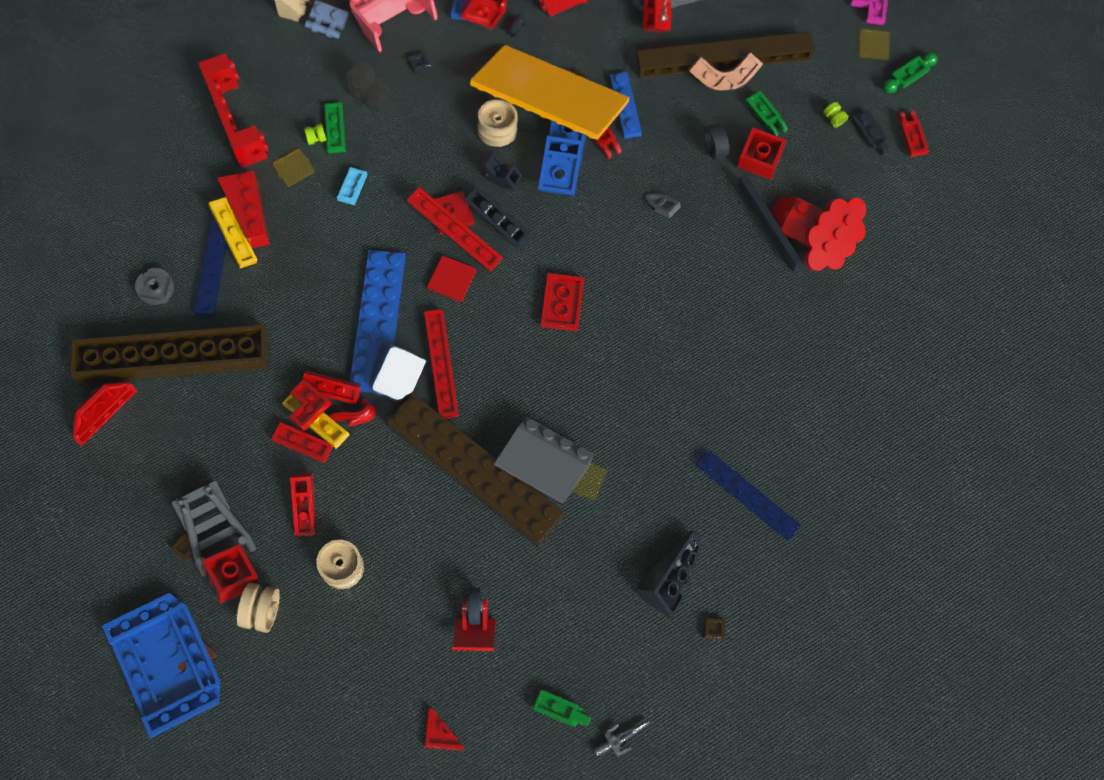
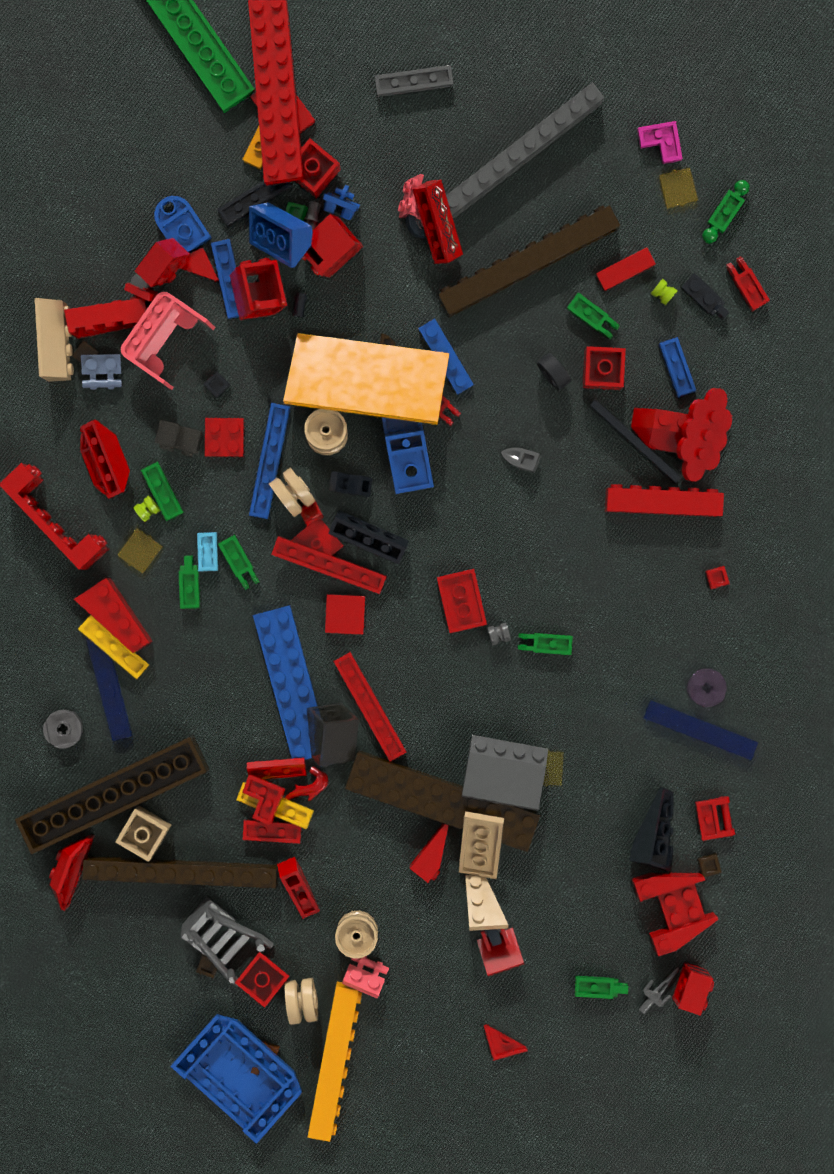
camera: 15 degrees left, 20 degrees up
(182, 398) = (143, 833): none -> tan brick
(200, 447) = (180, 872): none -> dark brown brick
(263, 686) = (333, 1062): none -> light orange brick
(297, 80) = (104, 458): none -> red wedge
(323, 206) = (189, 584): none -> green hinge
(328, 612) = (363, 980): none -> coral plate
(375, 201) = (238, 560): none -> green hinge
(407, 104) = (224, 437): none -> red plate
(438, 135) = (269, 460): none -> blue tile
(441, 519) = (429, 859): none -> red slope
(447, 158) = (292, 492): none -> tan wheel
(456, 185) = (311, 514): none -> red tile
(474, 577) = (482, 904): none -> tan wing
(495, 517) = (481, 845): none -> tan plate
(590, 341) = (499, 633): none -> dark grey wheel
(628, 365) = (548, 643): none -> green hinge
(656, 740) = (693, 989): none -> red brick
(670, 654) = (679, 907): none -> red wedge
(726, 80) = (547, 287): nougat plate -> none
(728, 582) = (708, 818): none -> red plate
(758, 464) = (714, 679): none -> clear purple plate
(780, 281) = (664, 501): none -> red brick
(807, 89) = (625, 269): none -> red tile
(808, 364) = (717, 577): none -> red tile
(828, 178) = (677, 367): none -> blue tile

